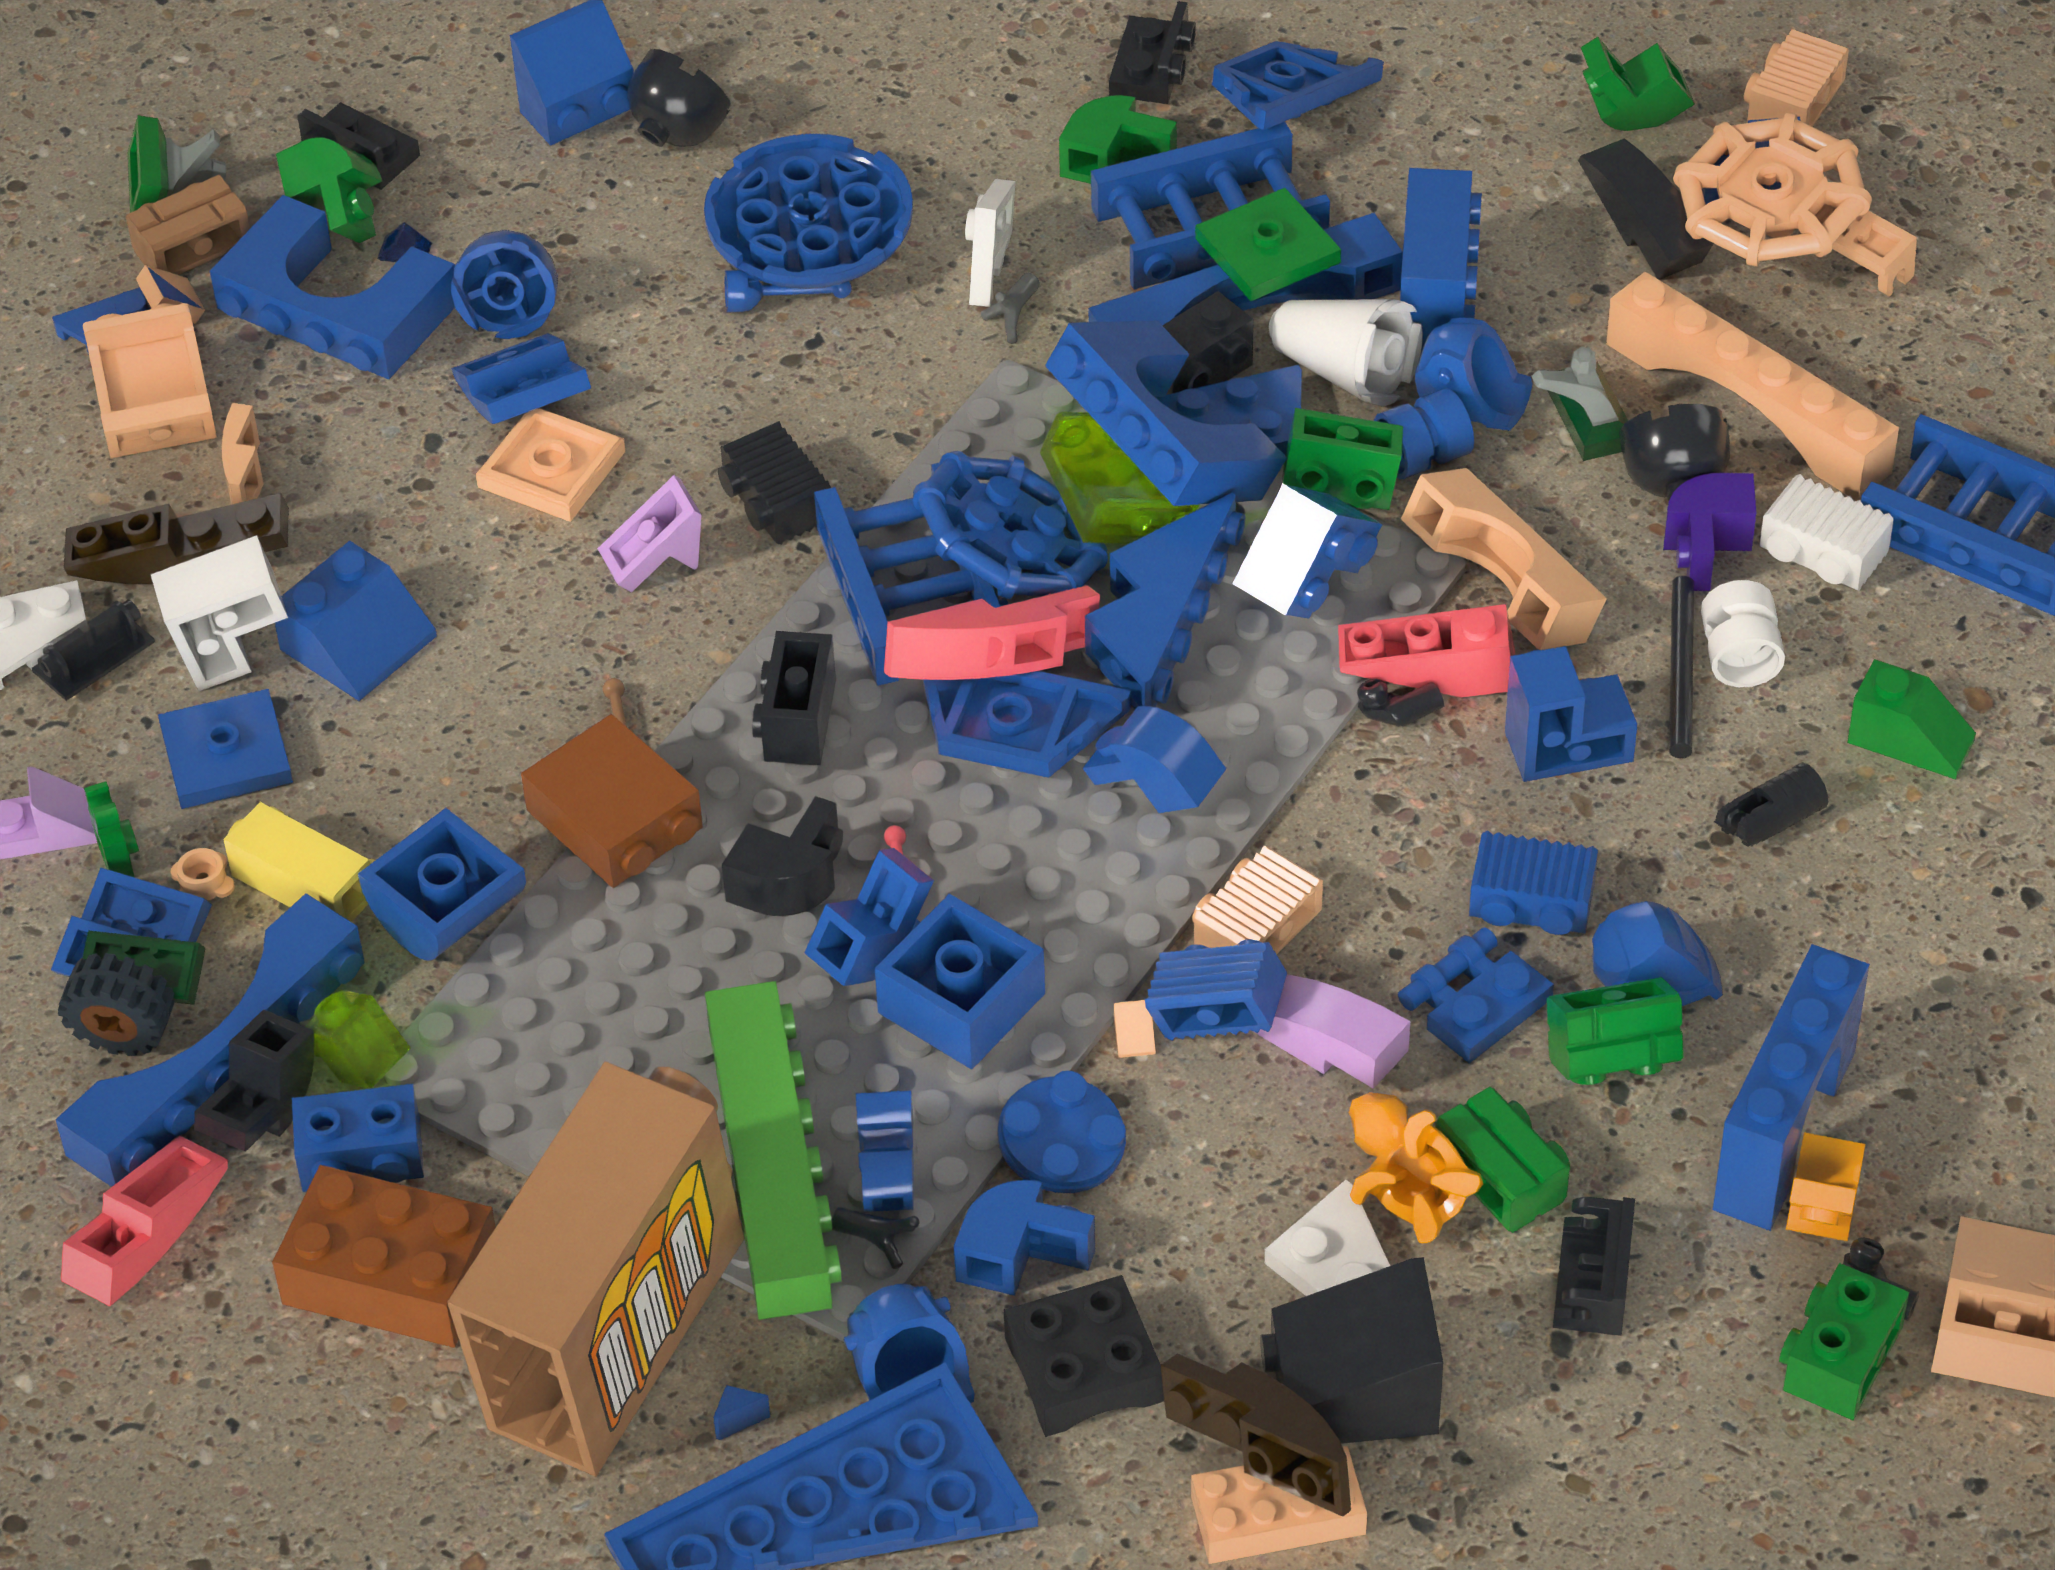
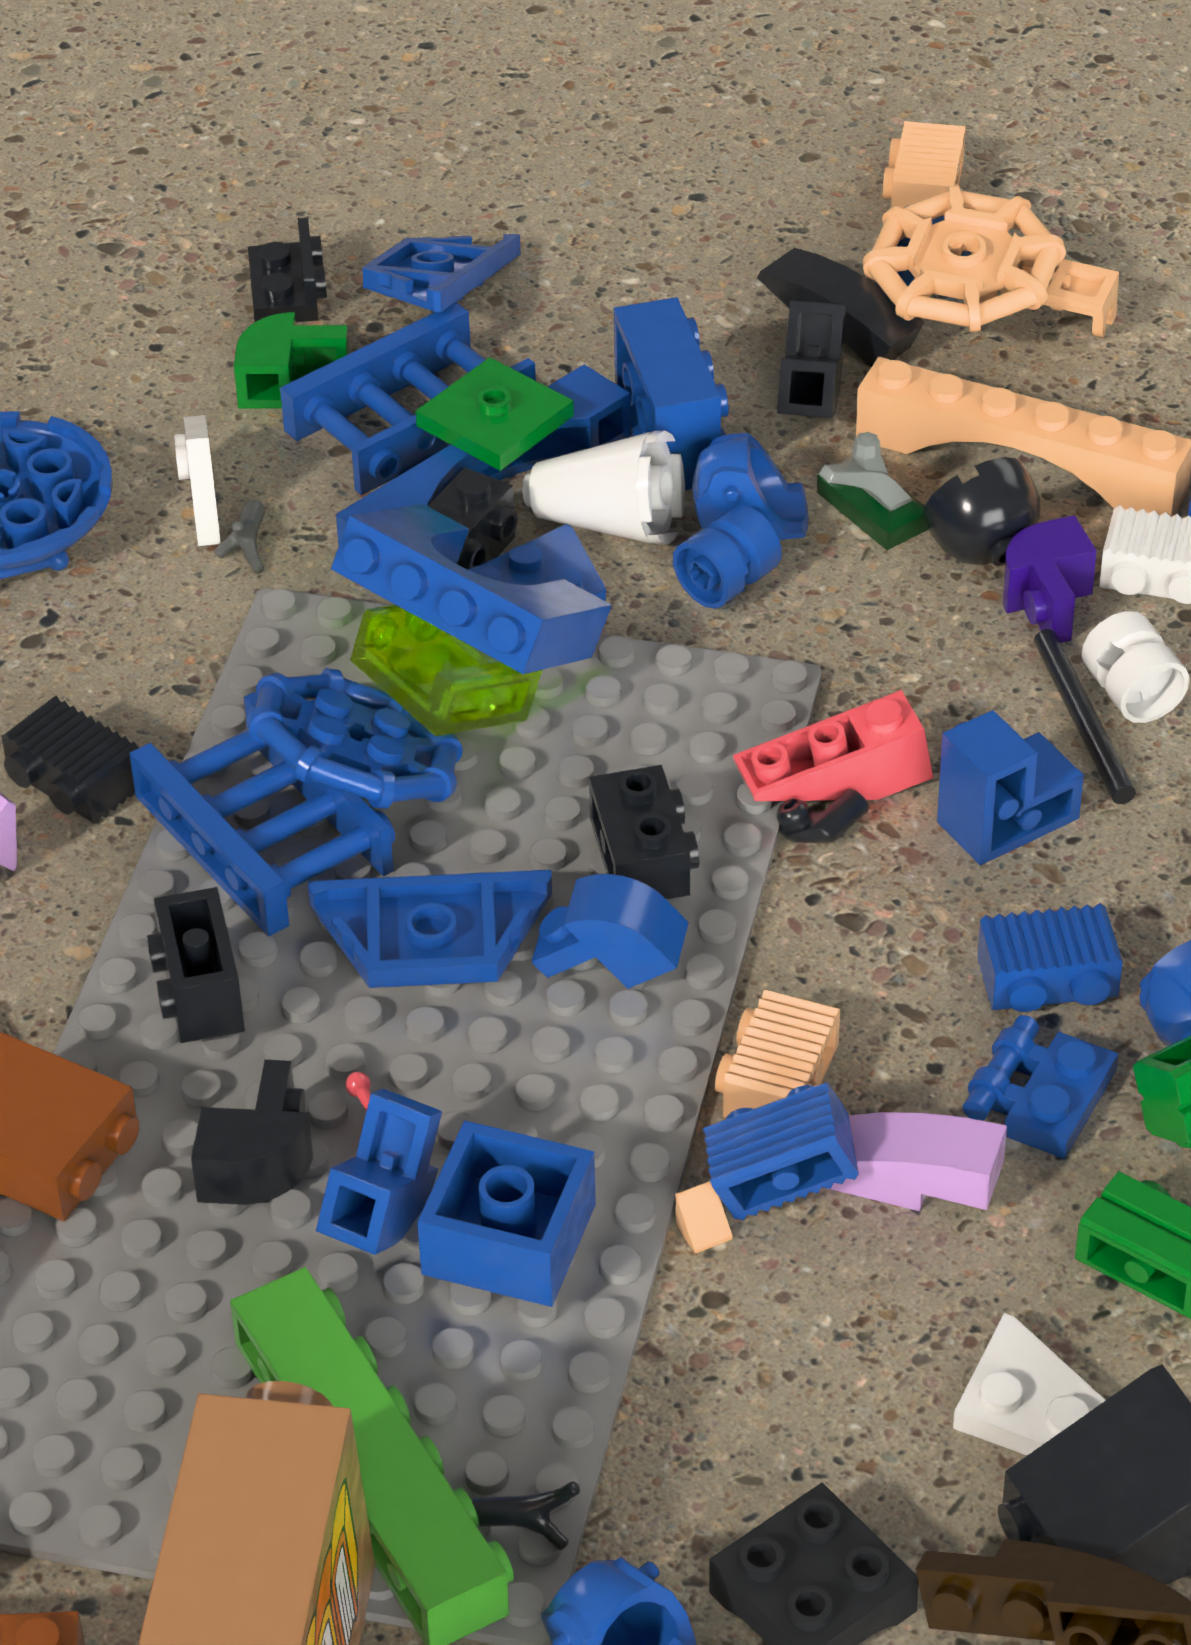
camera: 20 degrees left, 5 degrees down
(886, 1150) = (491, 1409): blue leg -> none
(988, 641) = (385, 854): coral slope -> none
(1015, 1224) = (675, 1463): blue brick -> none
(1062, 1133) = (677, 1349): blue piece -> none
(1160, 594) = (534, 777): blue slope -> none
(1224, 676) = (641, 829): none -> black brick
(1300, 548) = (669, 687): brick -> none
(1344, 457) = (665, 595): green brick -> none
(1416, 1165) = (1072, 1277): light orange animal -> none
(1466, 519) = (819, 628): light nougat arch -> none
(1591, 264) = (812, 359): none -> black brick
(1635, 93) = (781, 208): green brick -> none

